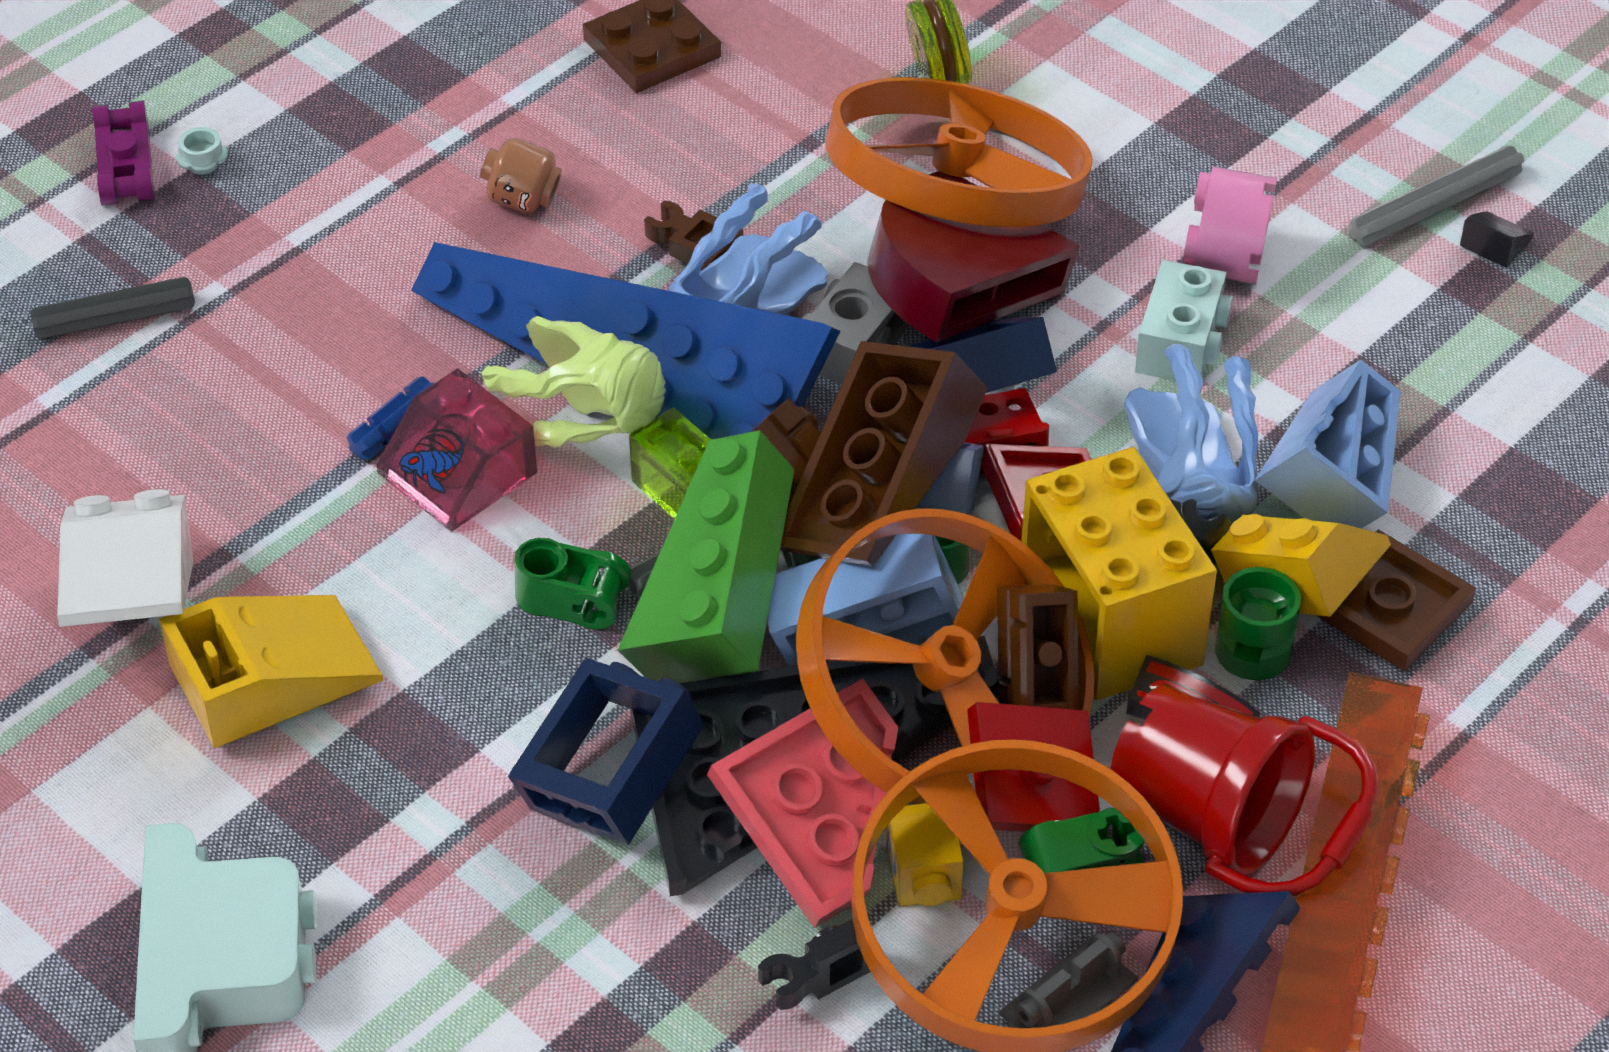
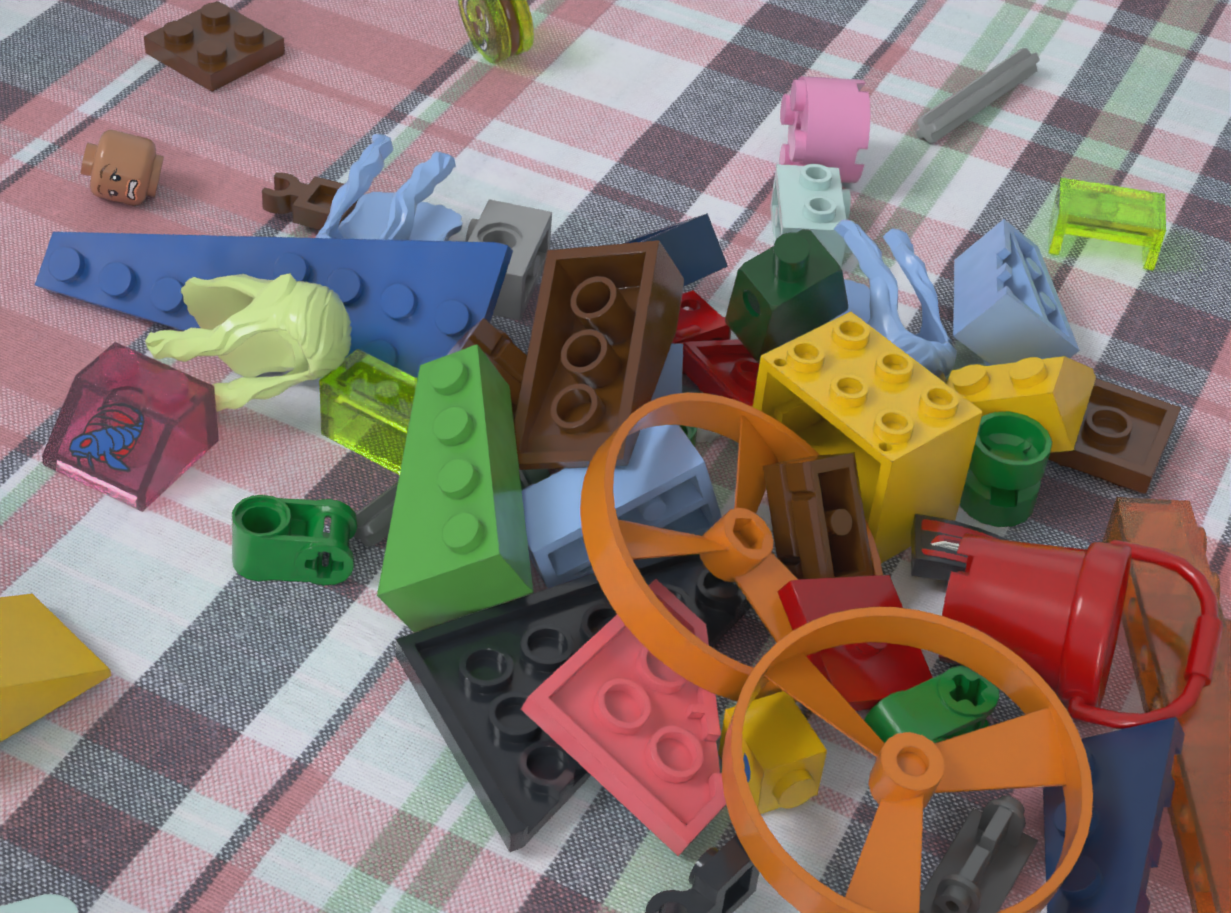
camera: 20 degrees left, 5 degrees down
(367, 439) = (39, 416): blue axle -> none
(642, 777) = (391, 764): dark blue window -> none
(962, 274) = (589, 182): dark red brick -> none
(1016, 190) = (570, 102): orange piece -> none
(1095, 411) = (785, 293): none -> dark green torso
(1494, 237) = (1041, 124): black slope -> none
(1503, 359) = (1108, 215): none -> clear neon green panel

